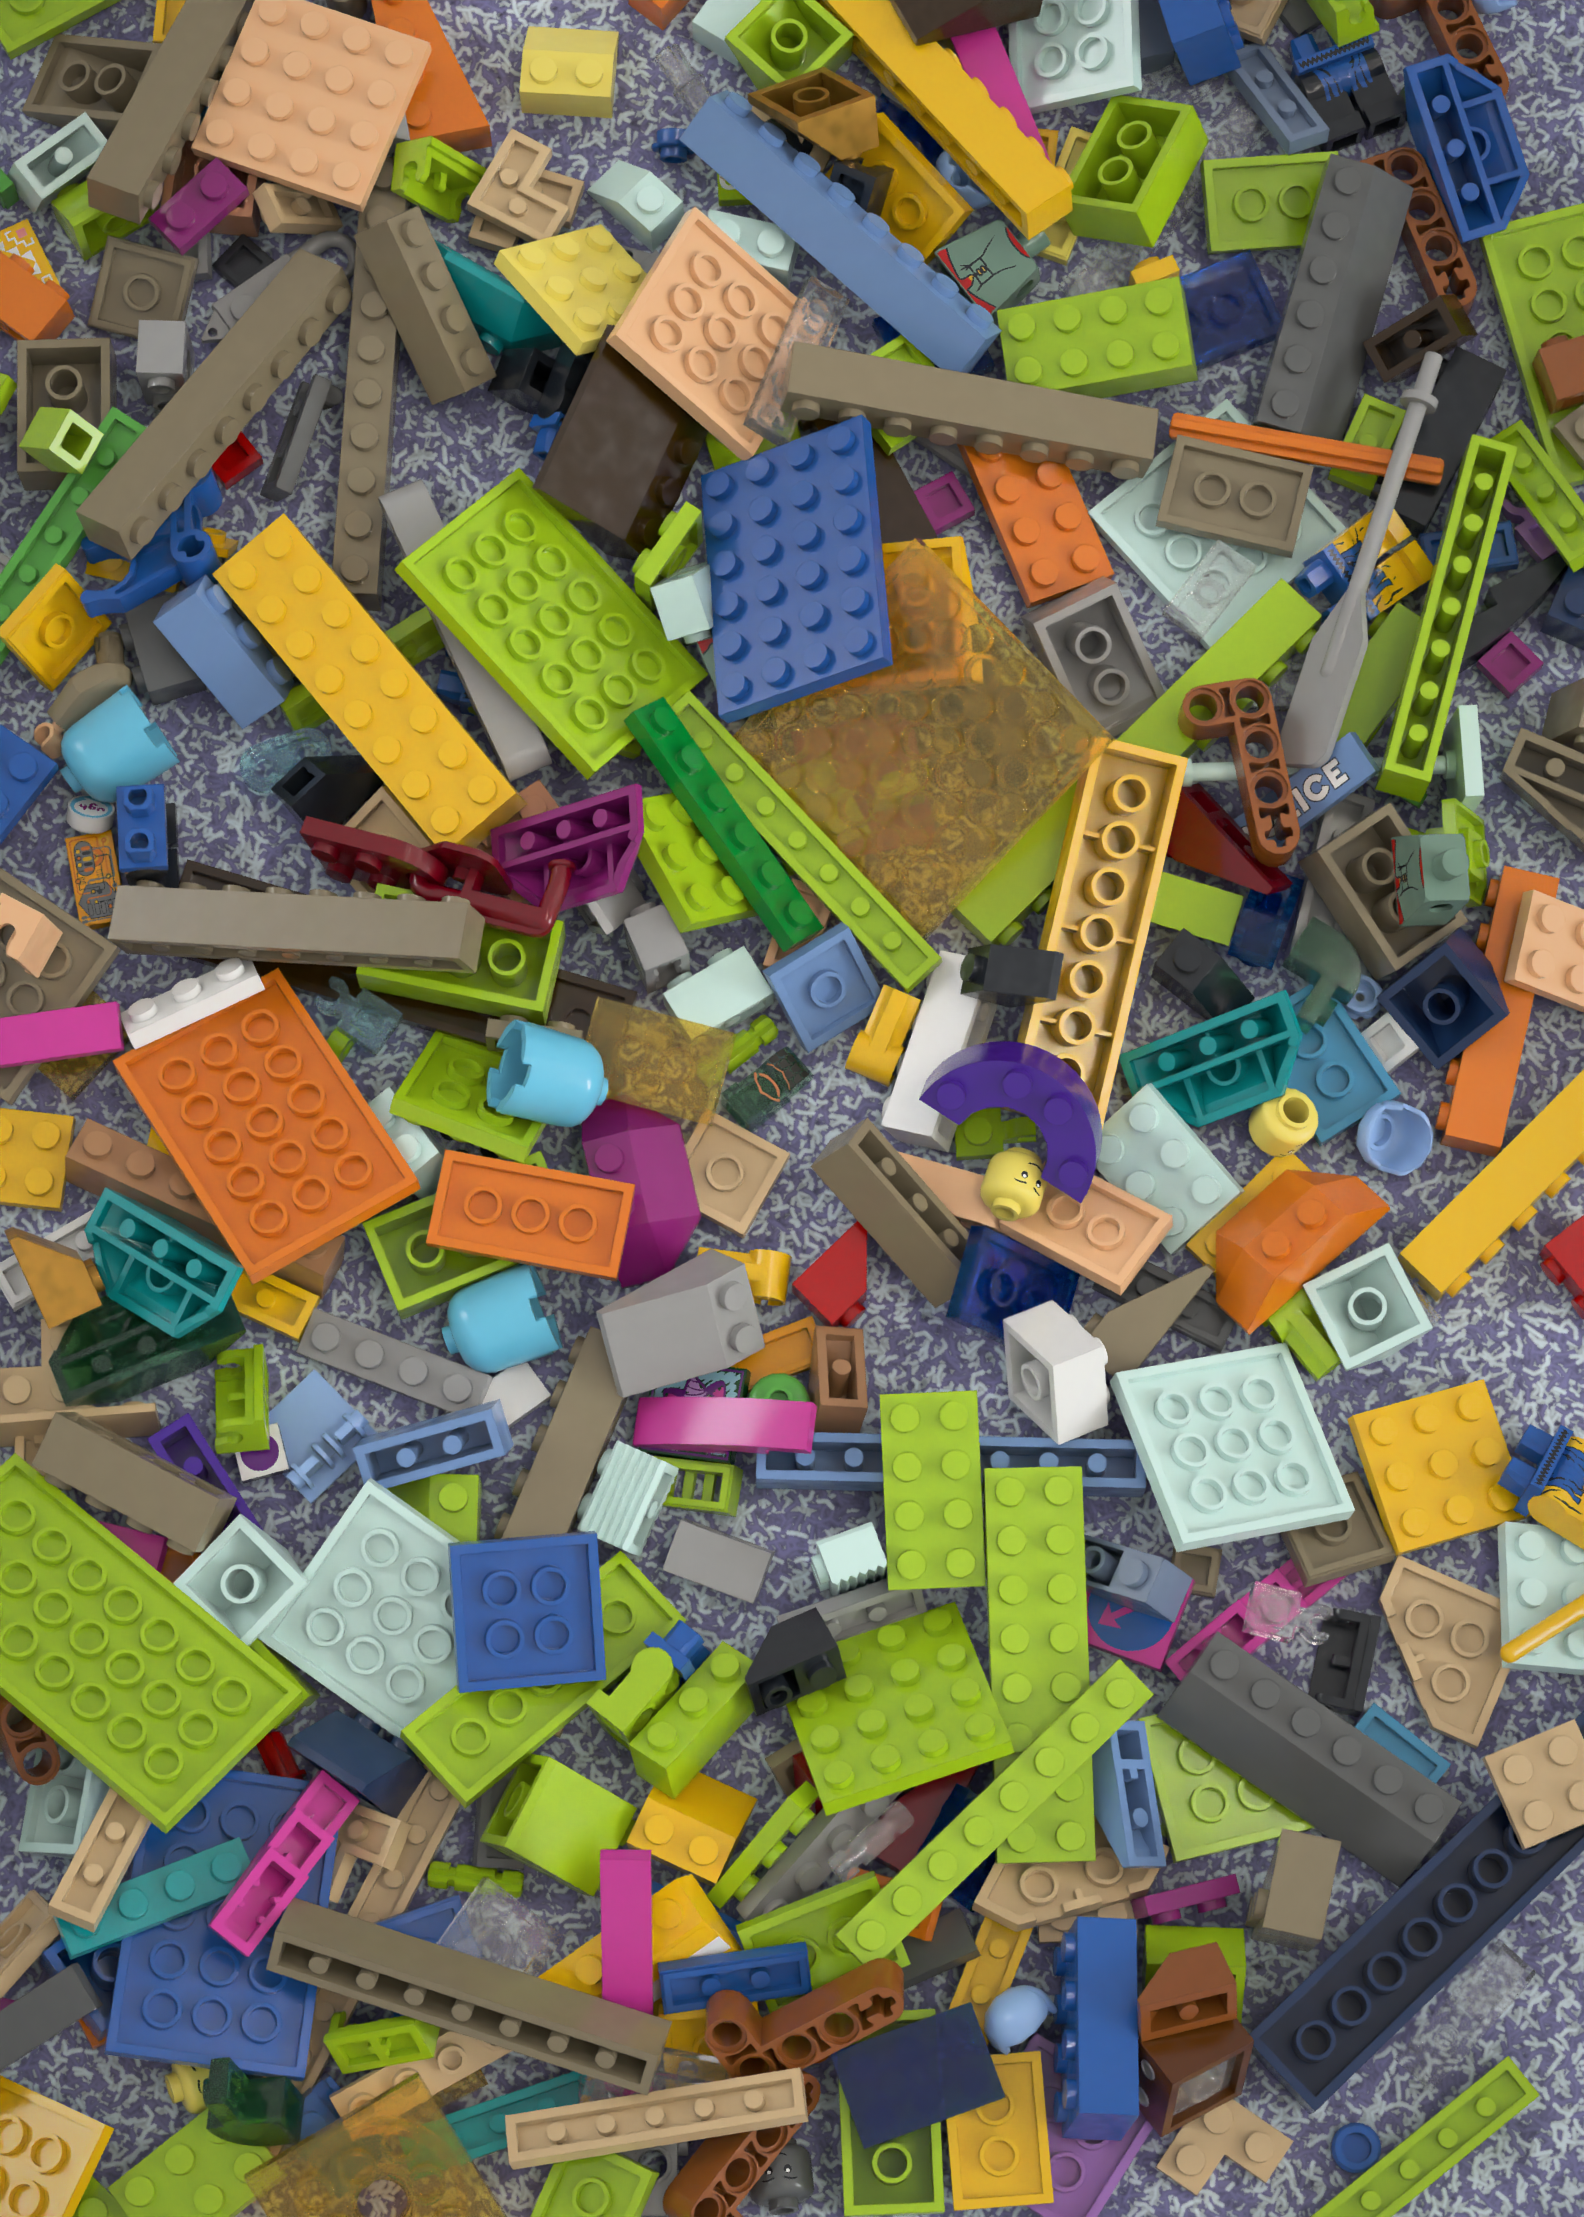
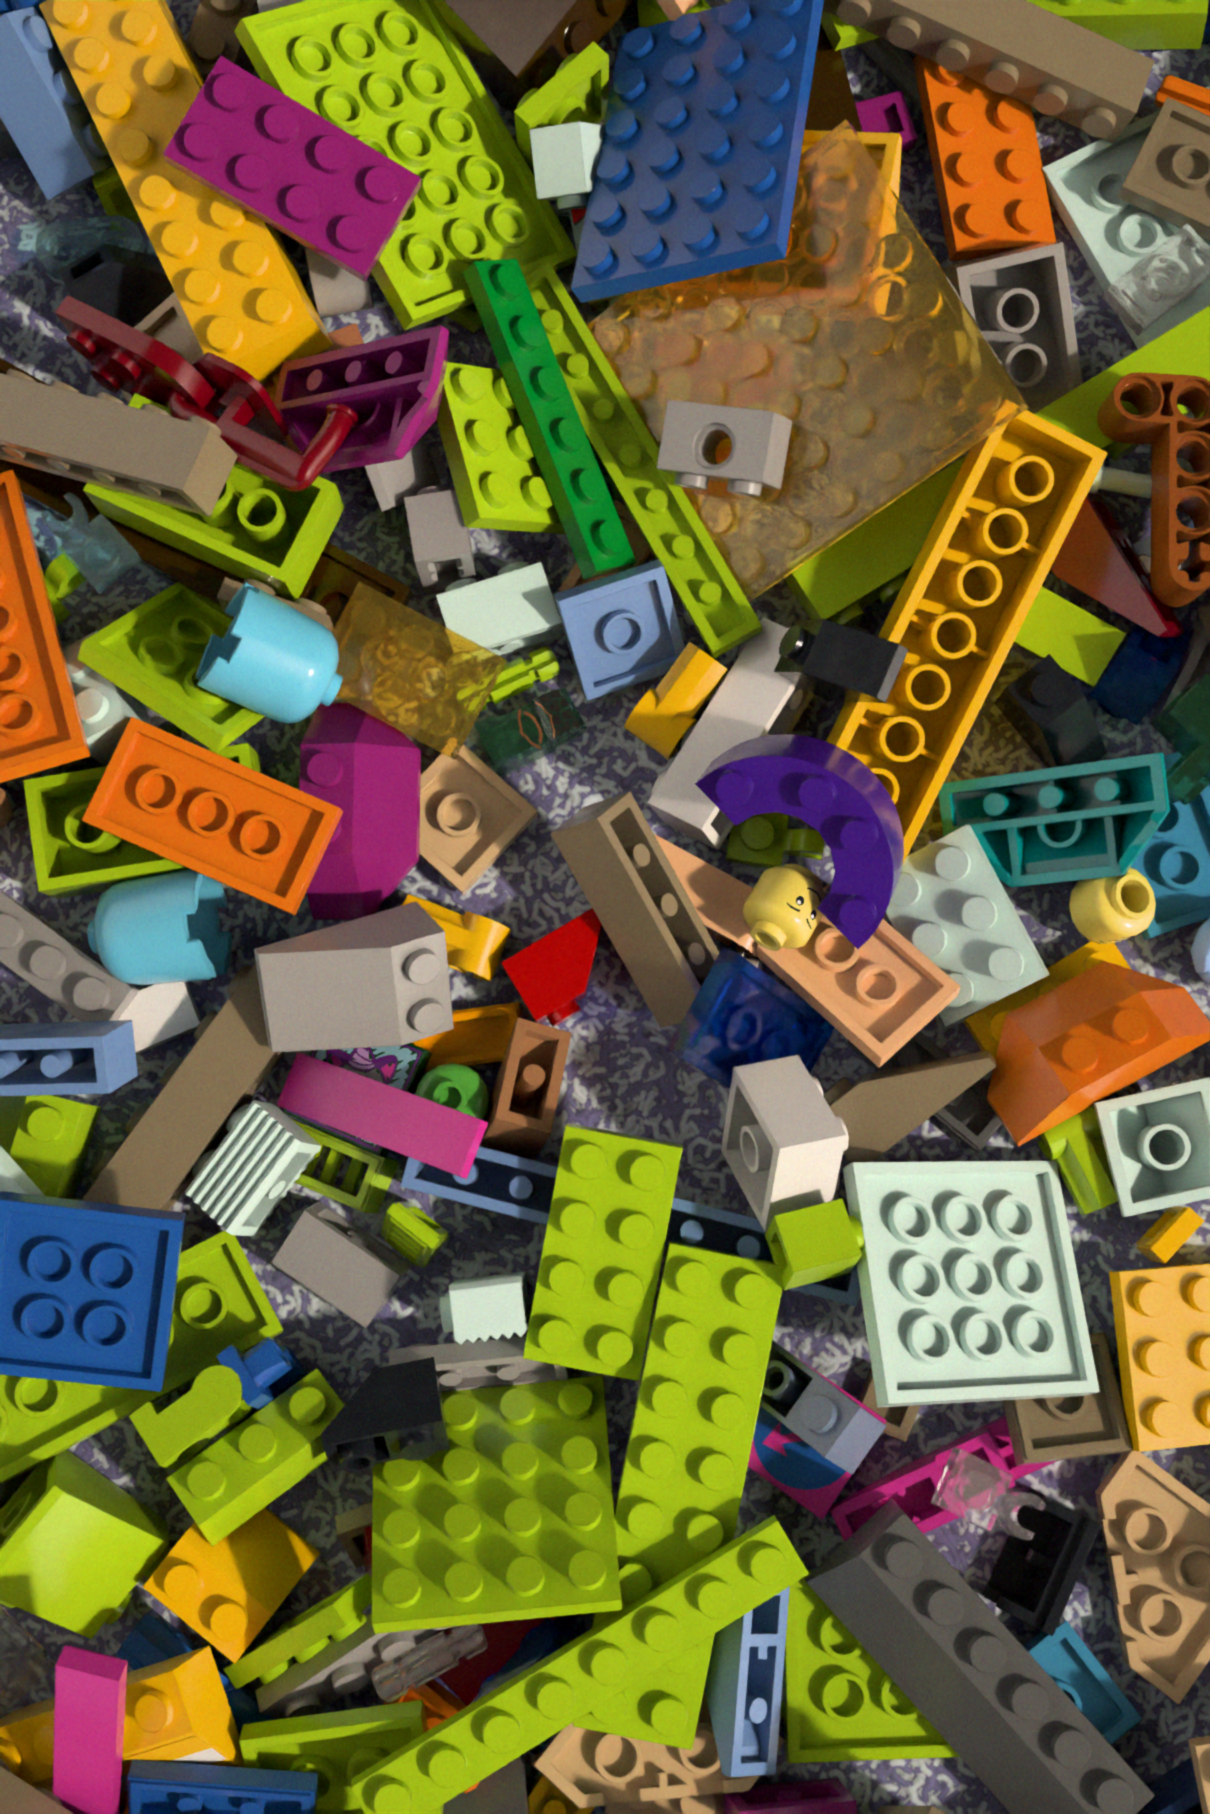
camera: 15 degrees right, 5 degrees up
(472, 674) = (292, 168): none -> magenta plate
(772, 1520) = (413, 1233): none -> lime slope
(849, 814) = (695, 431): none -> light grey brick
(1099, 1441) = (815, 1243): none -> lime brick
(1389, 1378) = (1169, 1233): none -> yellow tile

